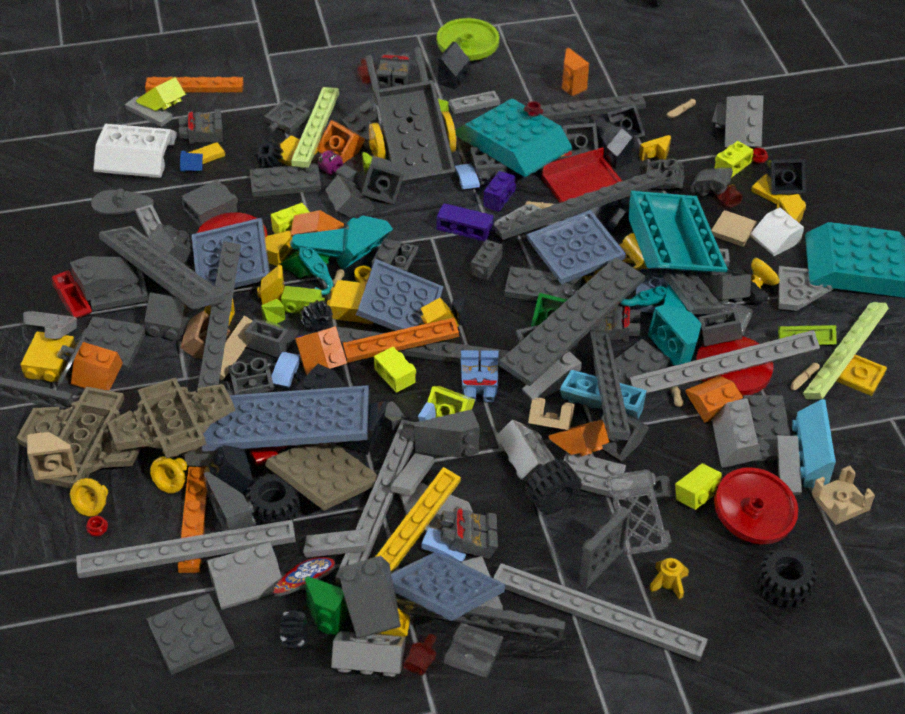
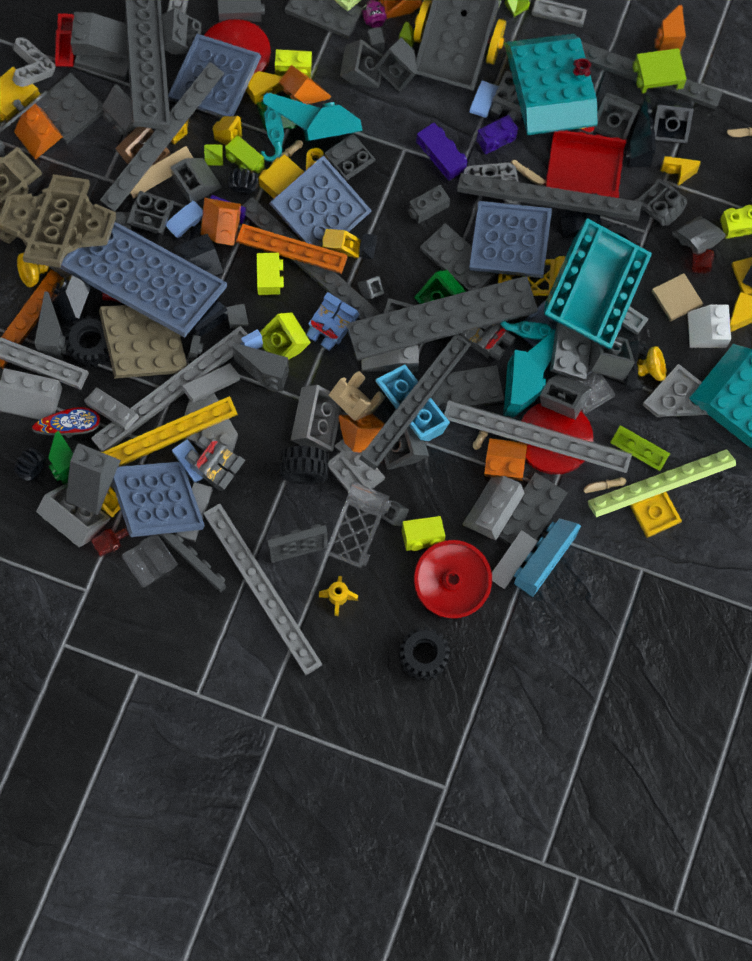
camera: 30 degrees right, 25 degrees up
(375, 456) = (196, 347): none -> dark grey plate
(489, 338) = (371, 287): none -> dark grey slope
(585, 95) = (659, 69): none -> lime panel
(841, 497) = (532, 614): tan panel -> none

